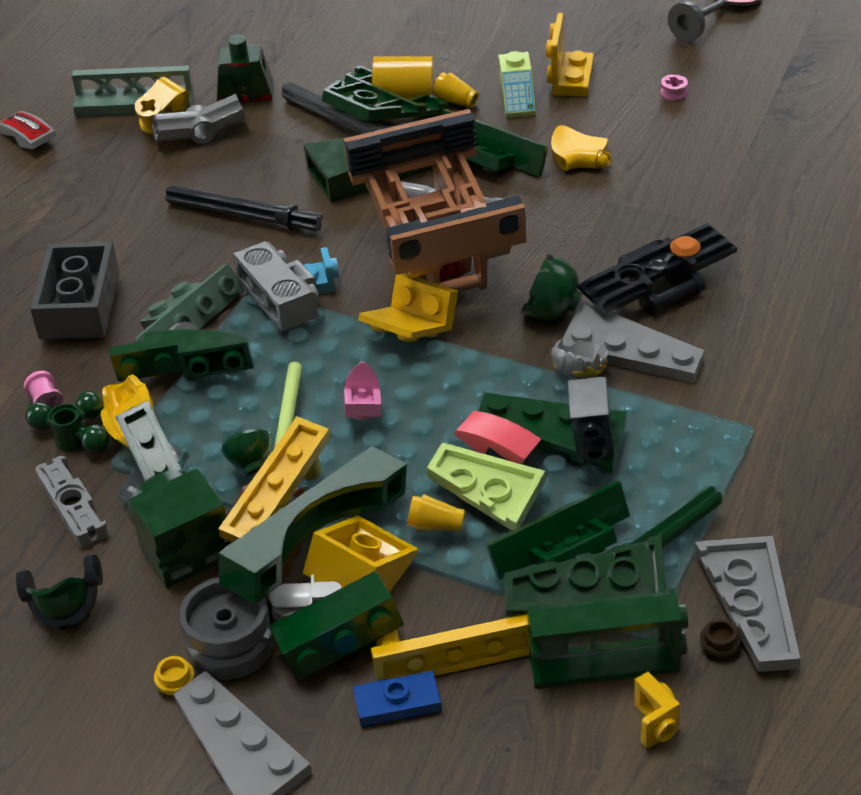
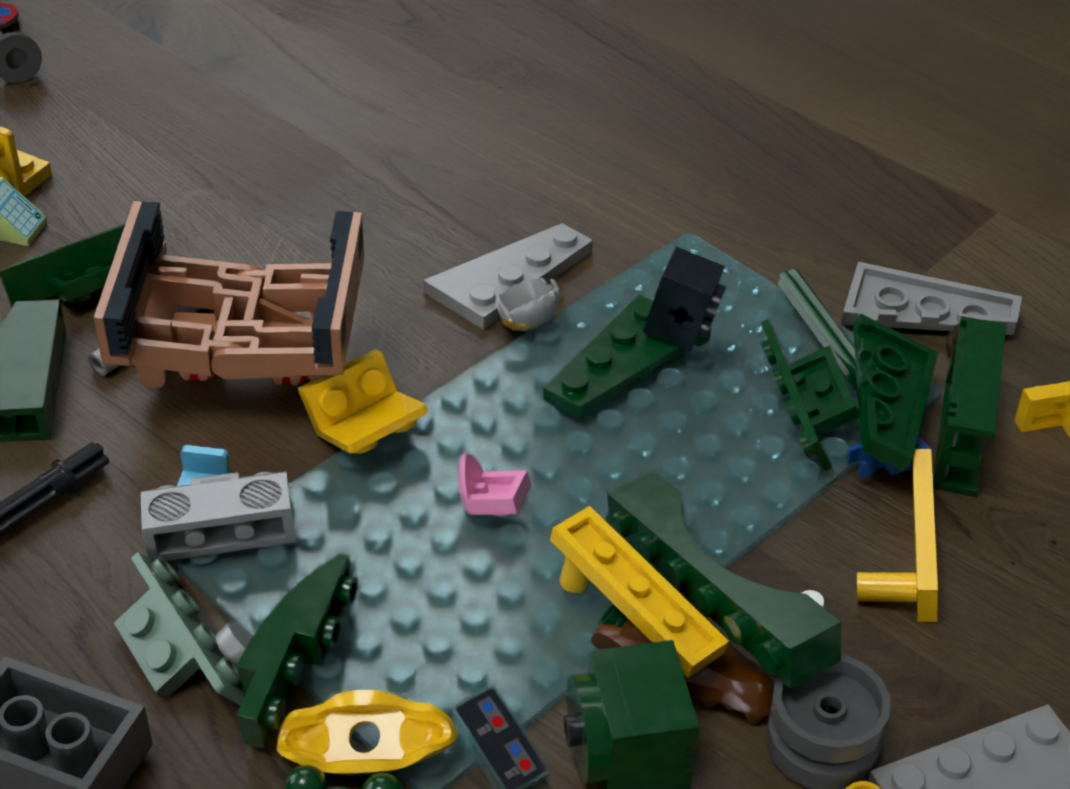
camera: 75 degrees left, 0 degrees up
(147, 440) = (484, 717): tile -> none
(247, 450) = (527, 619): dark green brick -> none
(289, 399) = (469, 575): yellowish green bar -> none
(336, 625) = (869, 609): dark green brick -> none
(355, 550) = (771, 556): yellow slope -> none
(397, 698) = (965, 607): blue plate -> none
(434, 515) = (721, 487): yellow cone -> none
(487, 482) = (692, 427): yellowish green wing -> none
(503, 436) = (623, 397): coral slope -> none
(553, 291) = (401, 290): dark green cylinder -> none
(578, 150) = (173, 203): yellow arm -> none
(674, 87) = (108, 109): bright pink bush -> none
(674, 258) = (414, 206): black piece -> none

